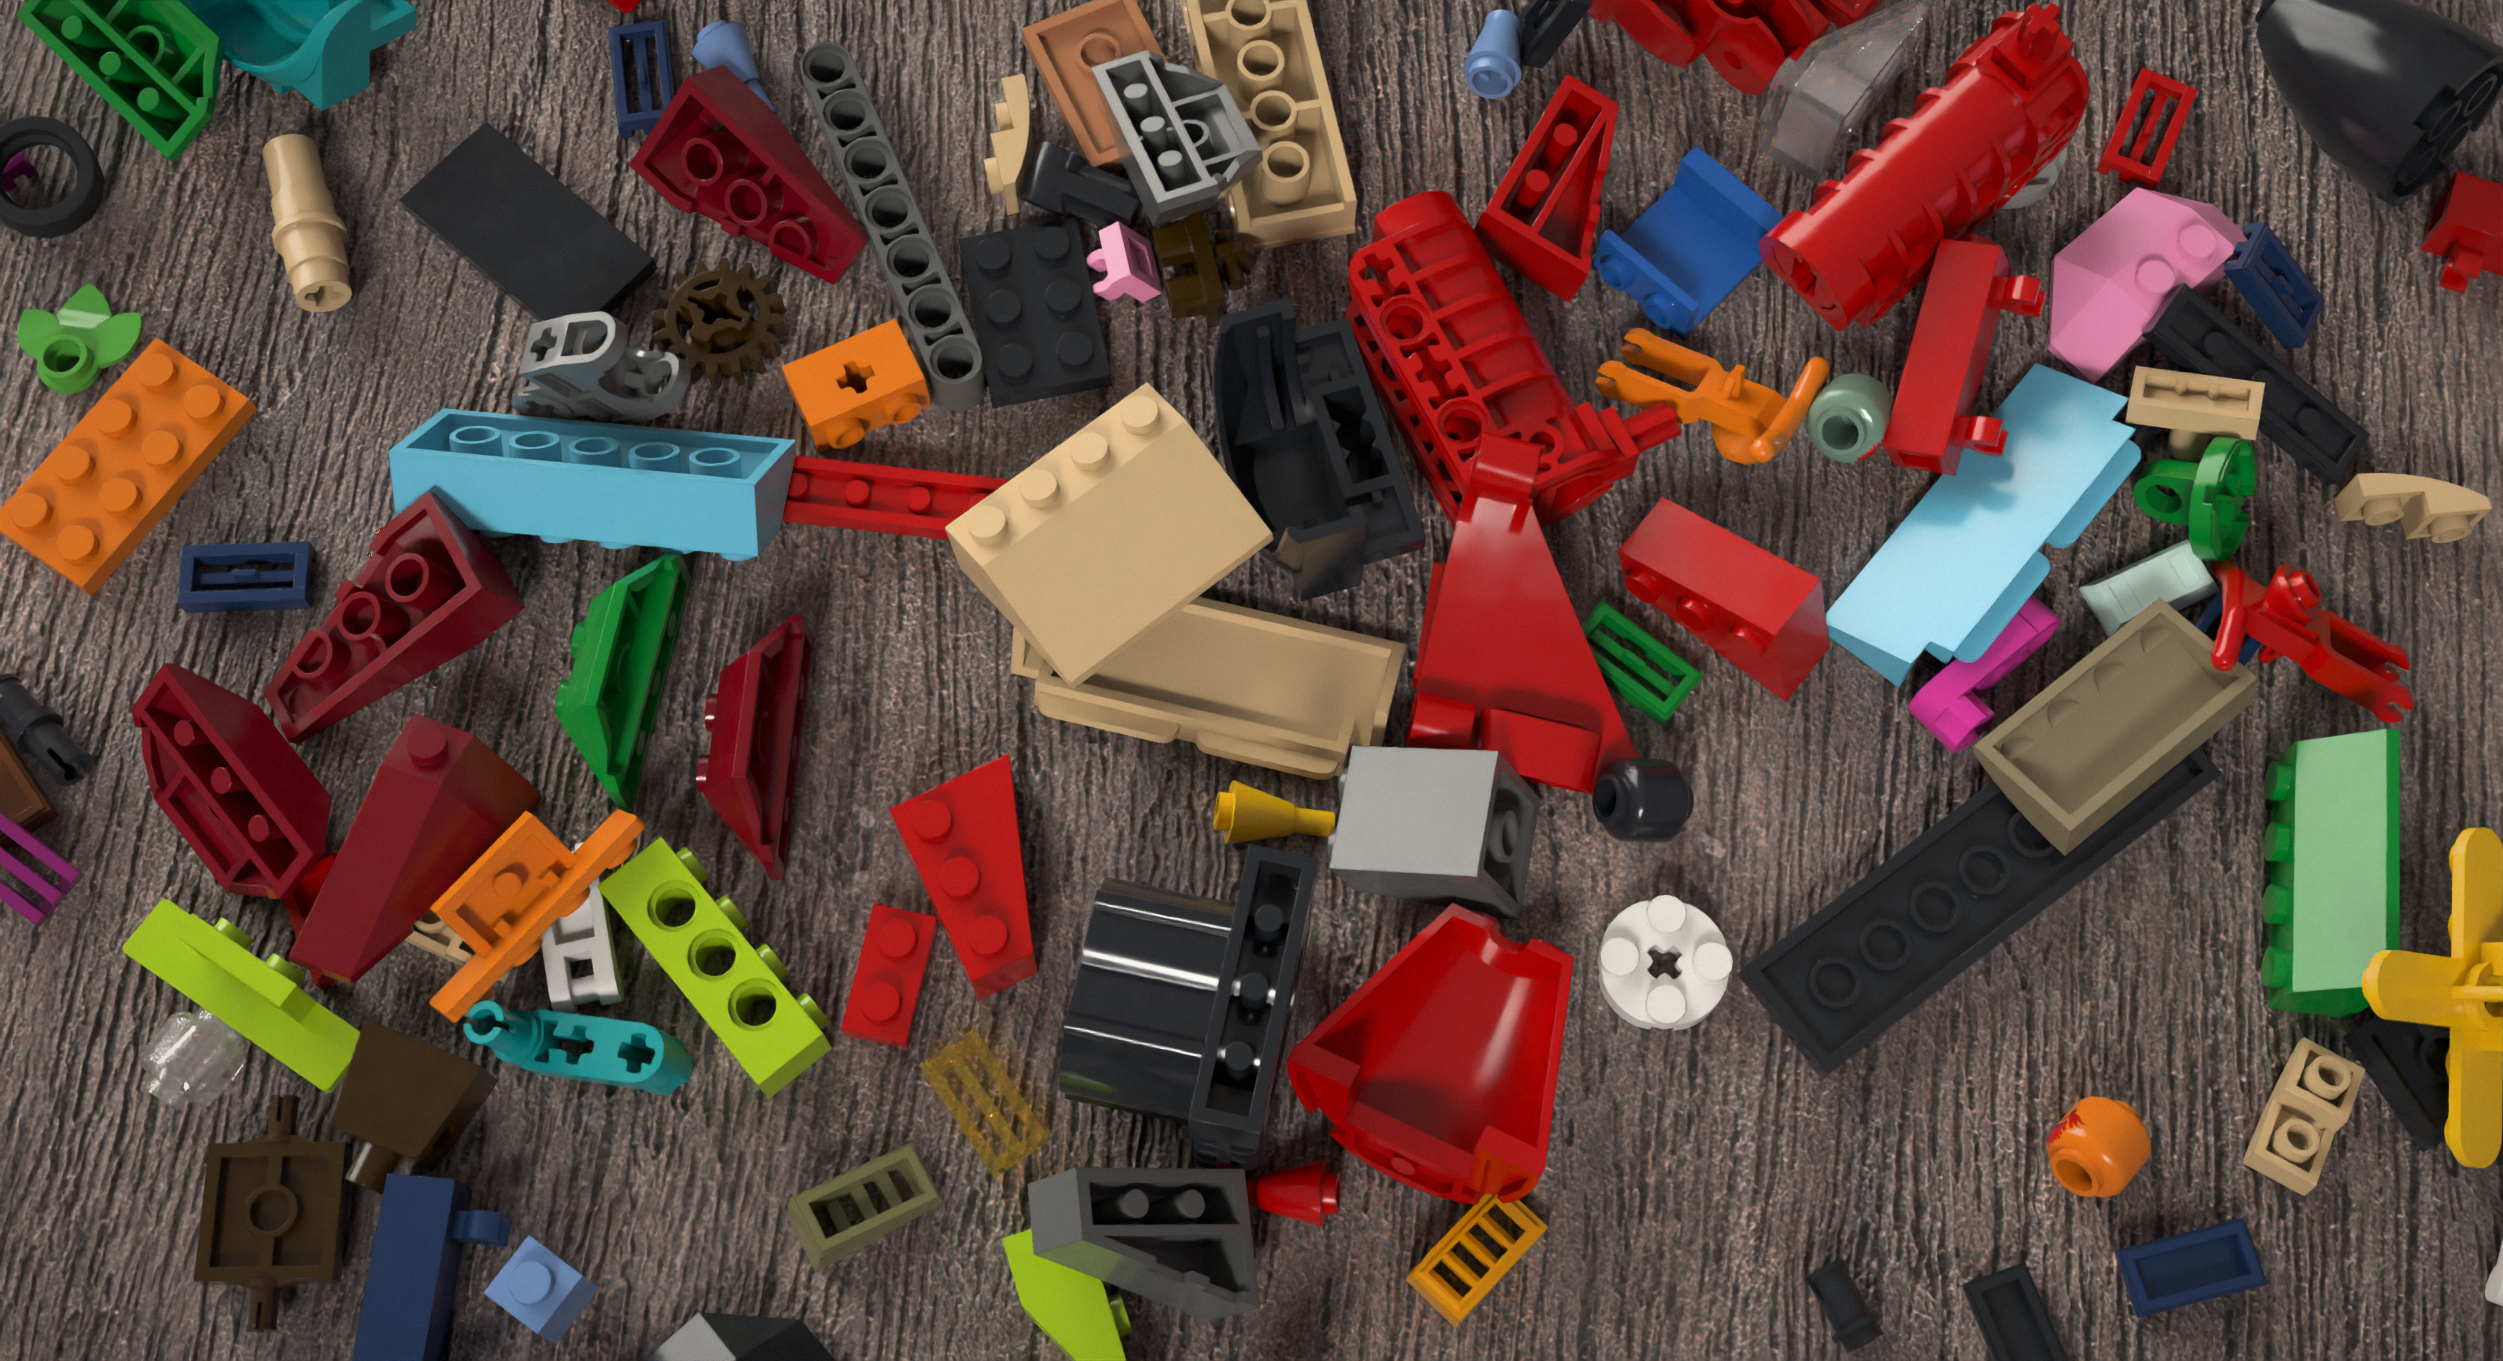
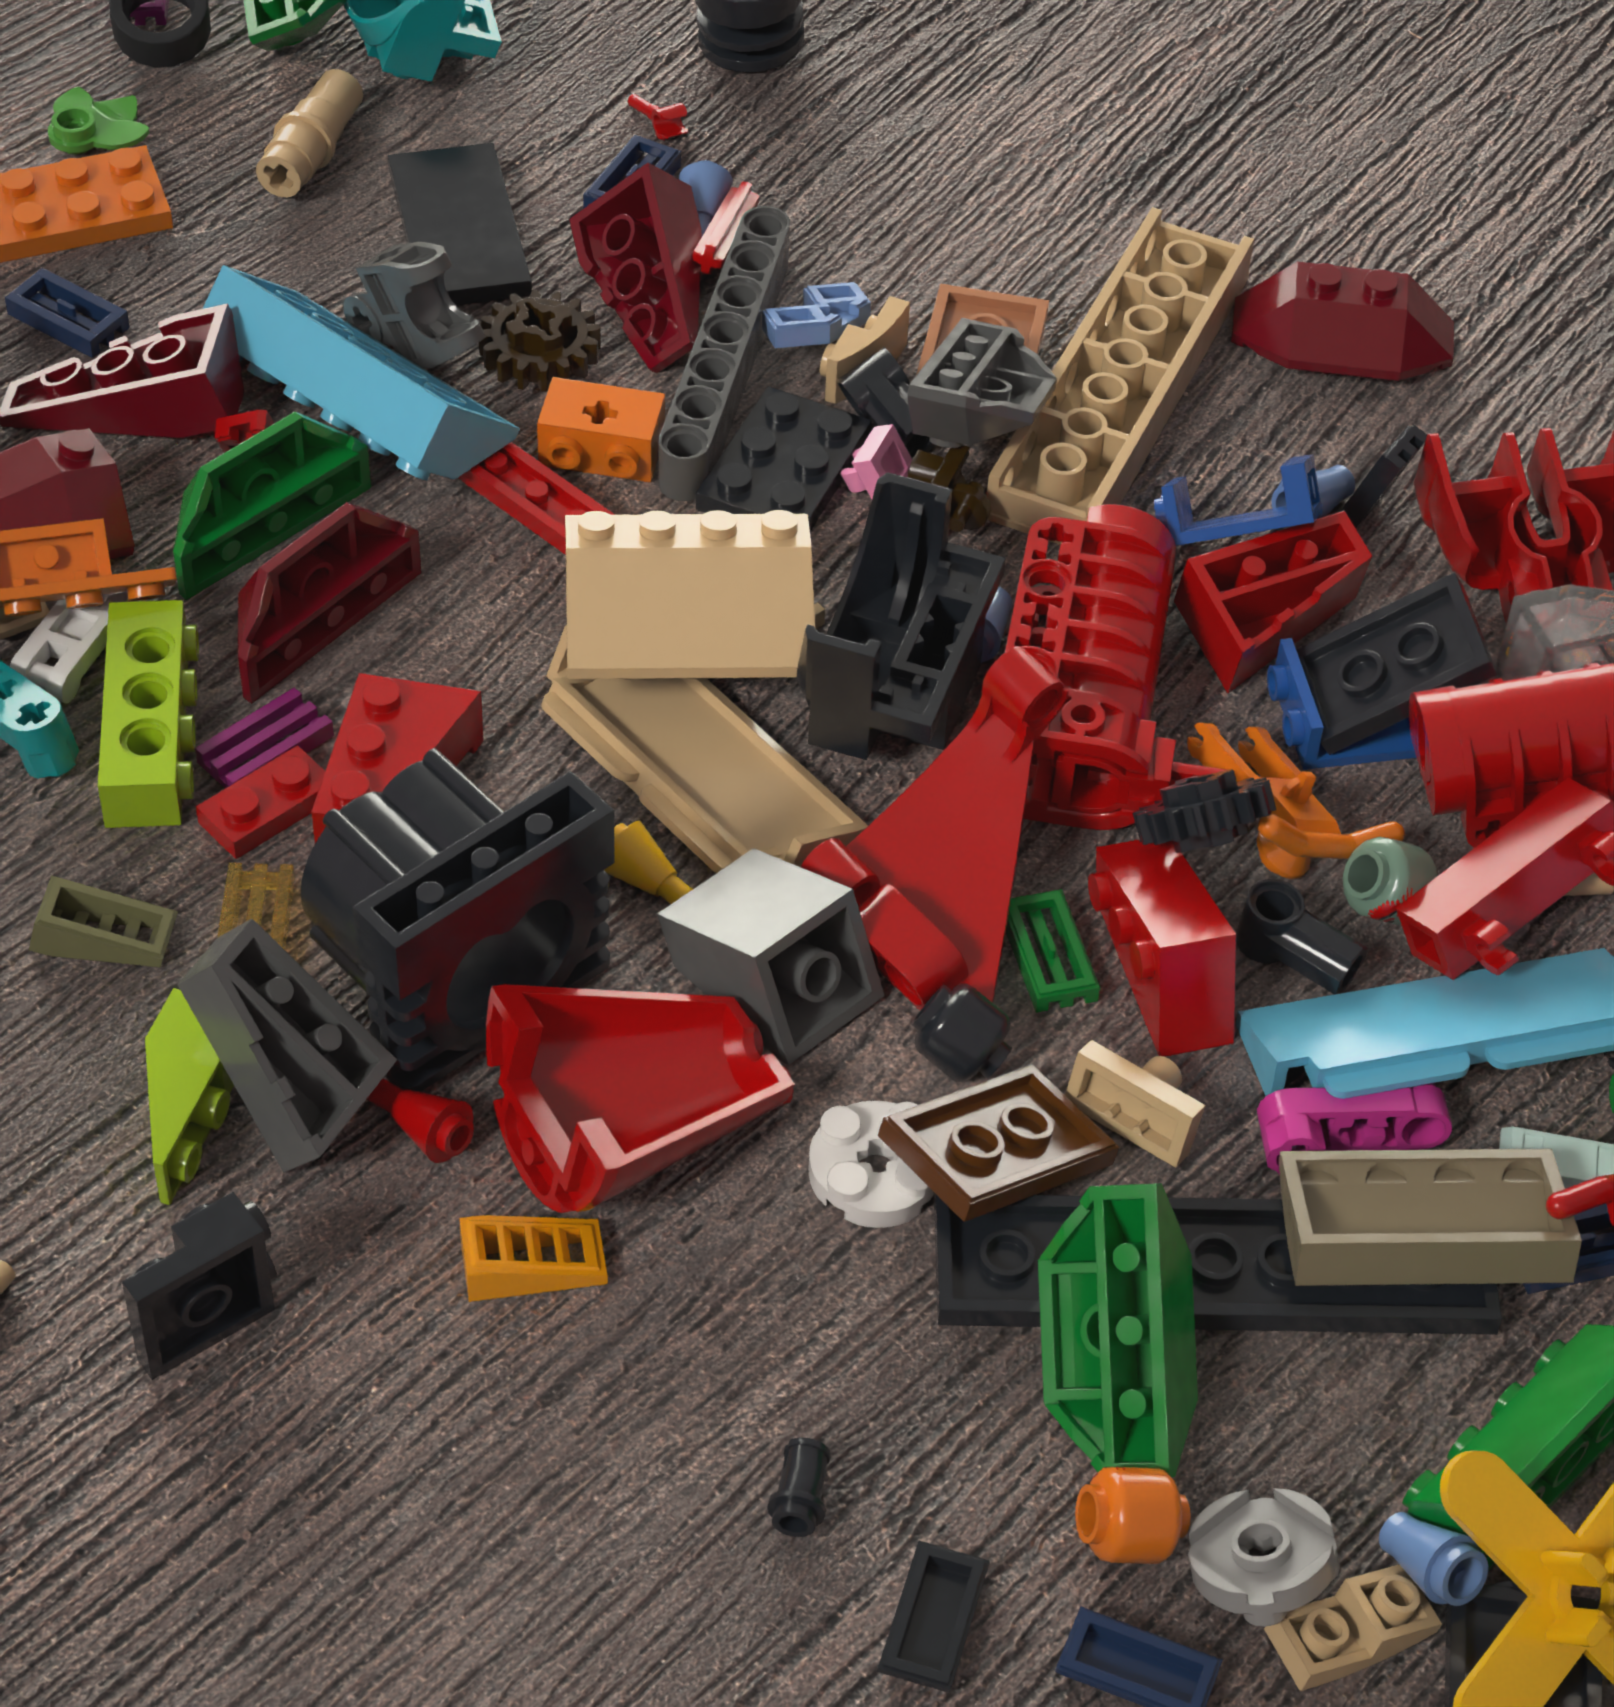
camera: 35 degrees right, 20 degrees down
(553, 610) = (239, 427): none -> red tile
(785, 87) = (719, 235): none -> axle
(848, 865) = (258, 737): none -> magenta tile
(957, 144) = (821, 318): none -> medium blue tile
(1486, 128) = (1301, 498): none -> blue panel
(1698, 469) = (1204, 811): none -> black gear
(1715, 201) = (1373, 664): none -> black plate
(1754, 887) = (997, 1142): none -> reddish brown tile
(1817, 765) = (1136, 1101): none -> tan tile
(1822, 519) = (1280, 929): none -> black piece
(1990, 1011) = (1120, 1328): none -> green wedge
(2237, 1142) = (1269, 1584): none -> light grey plate
(2337, 1028) = (1437, 1559): none -> medium blue cone

